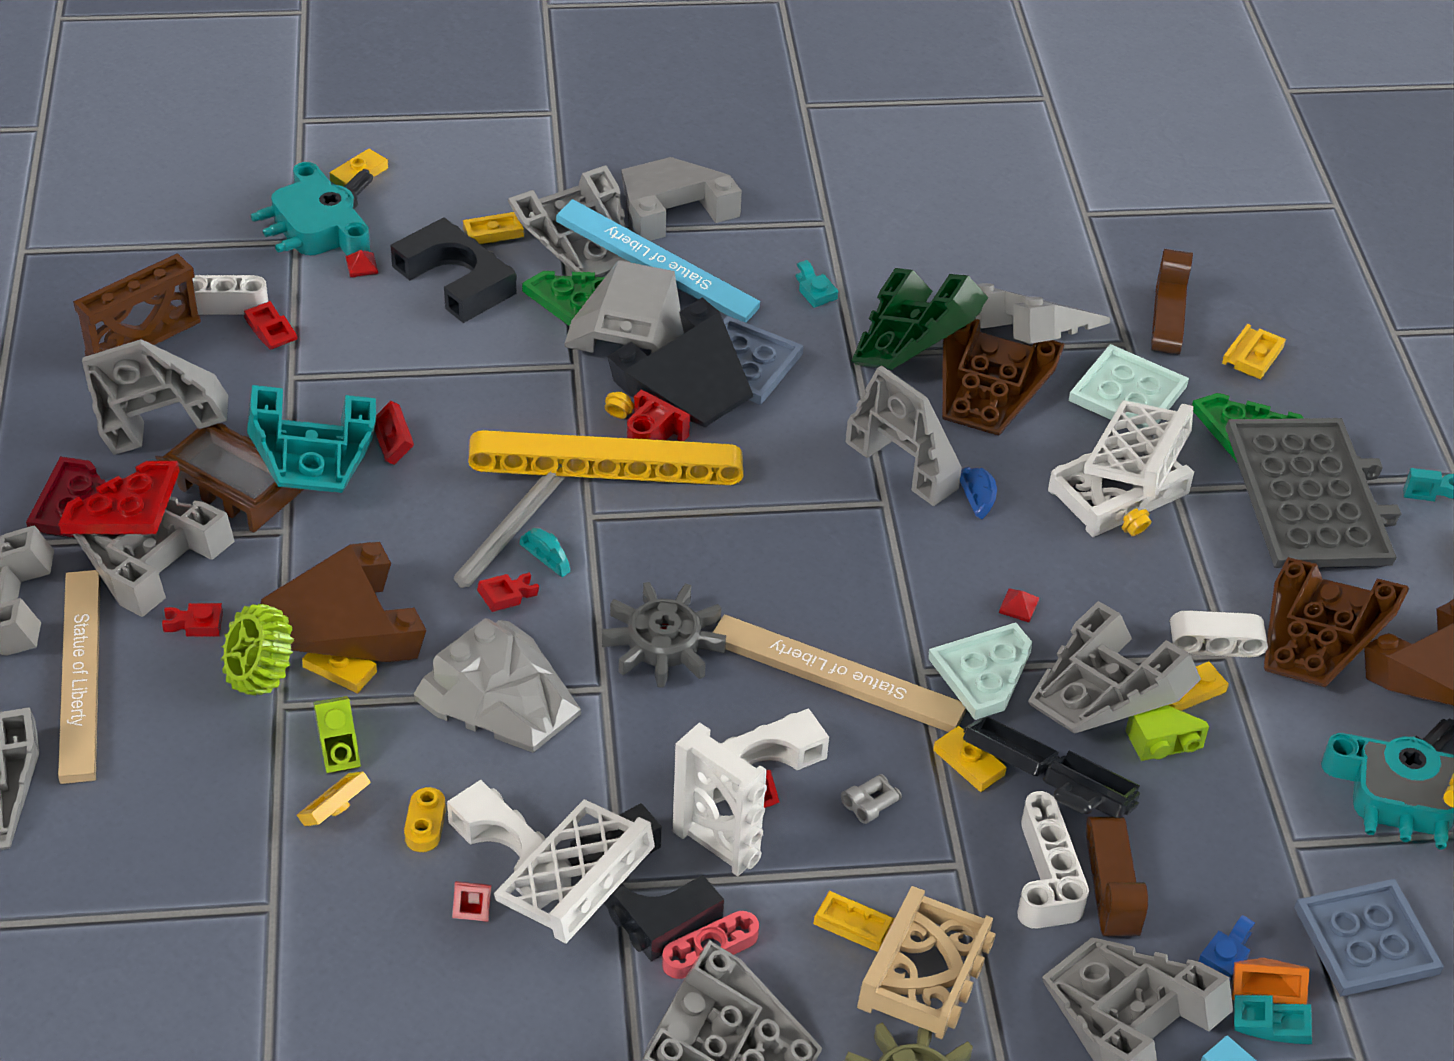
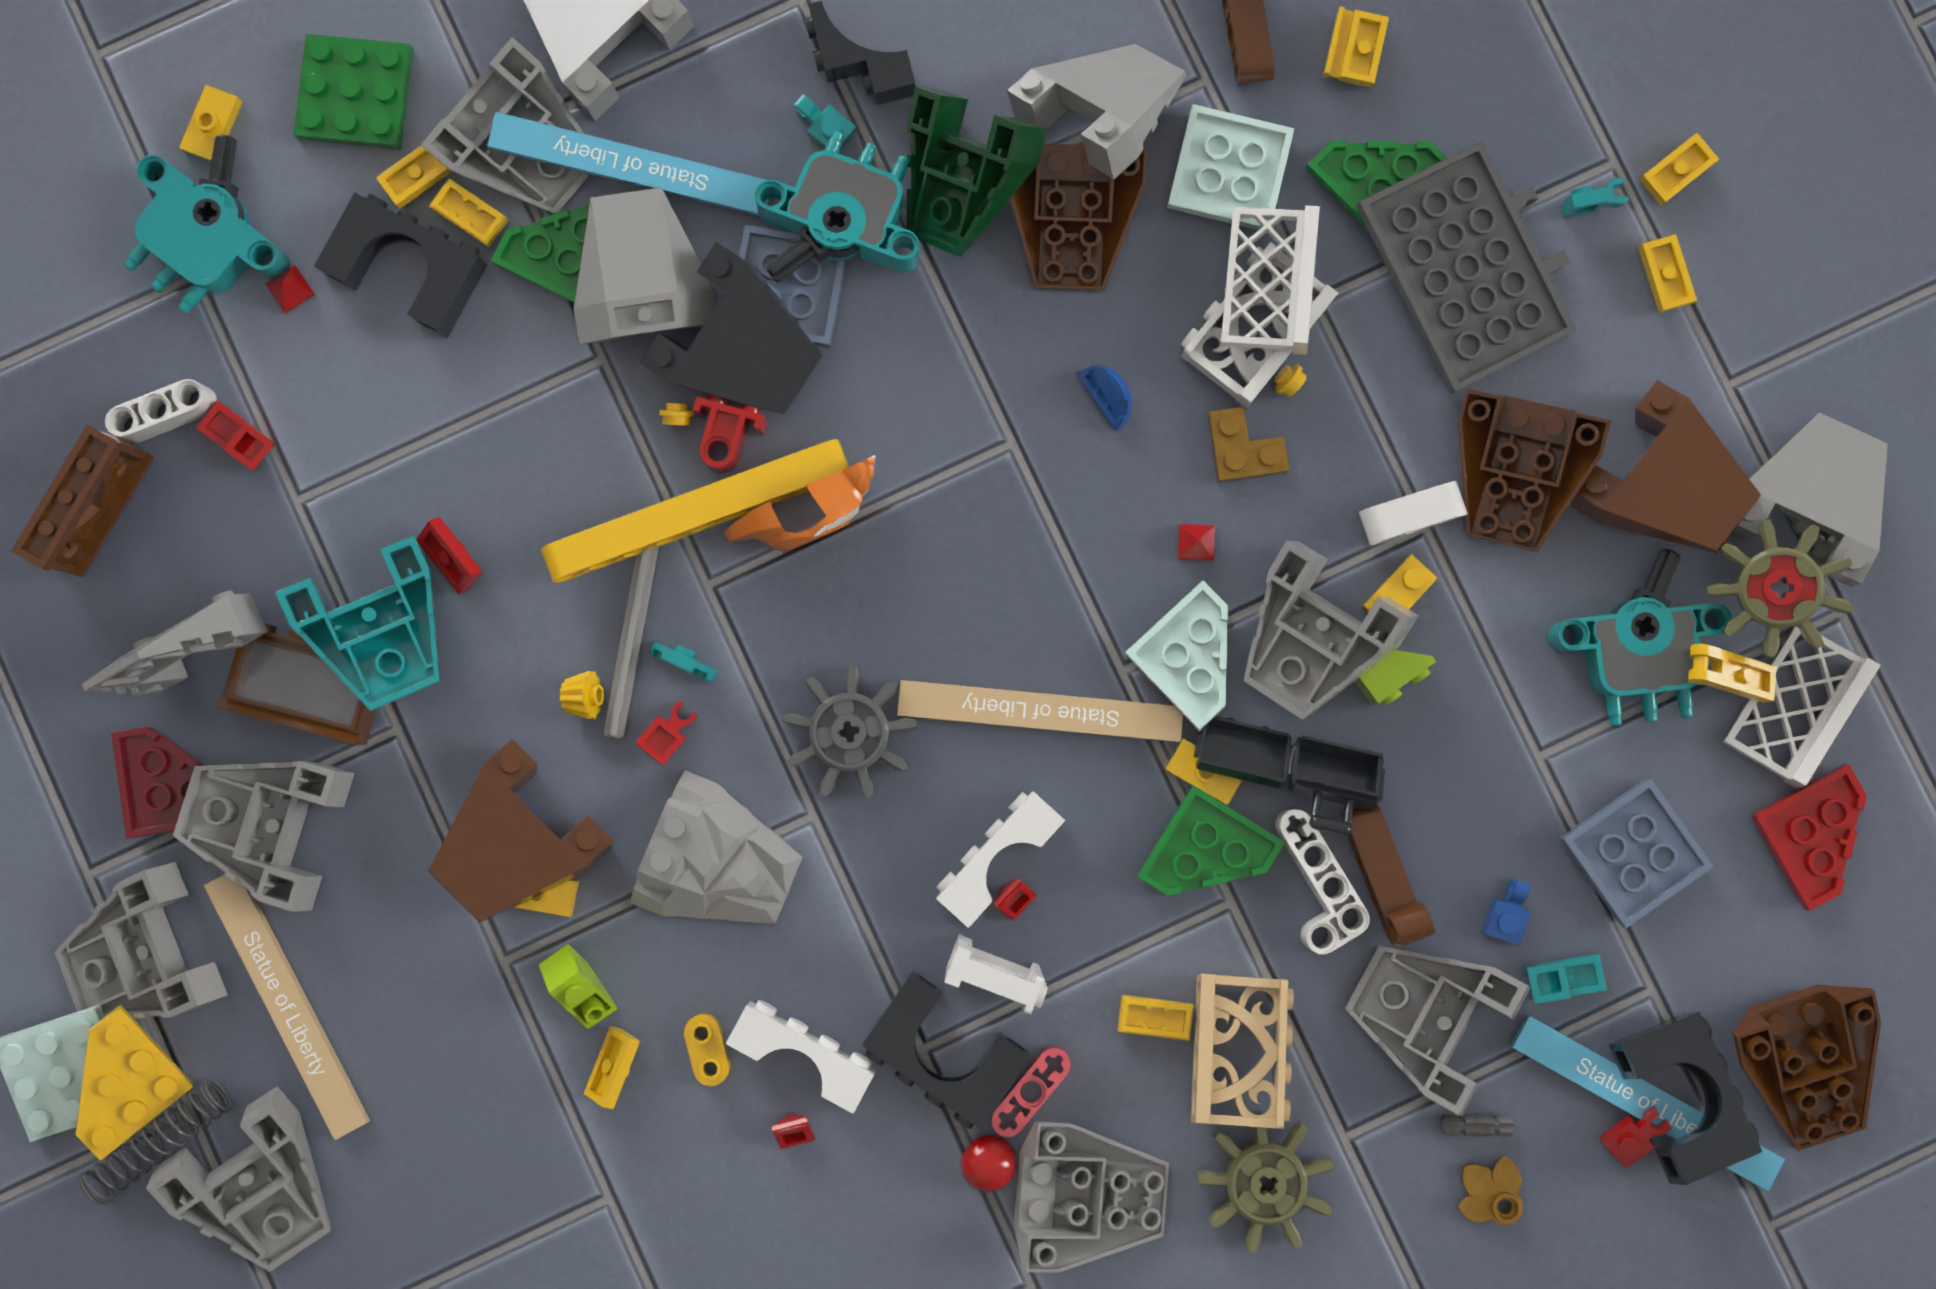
camera: 15 degrees left, 40 degrees up
(124, 504) = (222, 799): red plate -> none
(198, 620) = (368, 888): red plate -> none
(257, 649) = (455, 934): lime gear -> none
(451, 543) = (582, 695): none -> yellow piece
(471, 181) = (353, 91): none -> green plate
(520, 257) = (468, 213): none -> yellow plate
(598, 878) = (911, 1093): white fence -> none
(644, 988) = (988, 1163): none -> red hair
(713, 491) = (837, 496): none -> orange animal
(804, 321) = (840, 193): none -> piece
(851, 255) = (883, 73): none -> black arch
(866, 807) = (1117, 871): light grey piece -> none
(905, 416) = (973, 349): light grey wedge -> none
(952, 807) = (1207, 847): none -> green plate
(1077, 562) = (1236, 455): none -> pearl gold plate
(1271, 977) = (1554, 934): orange slope -> none

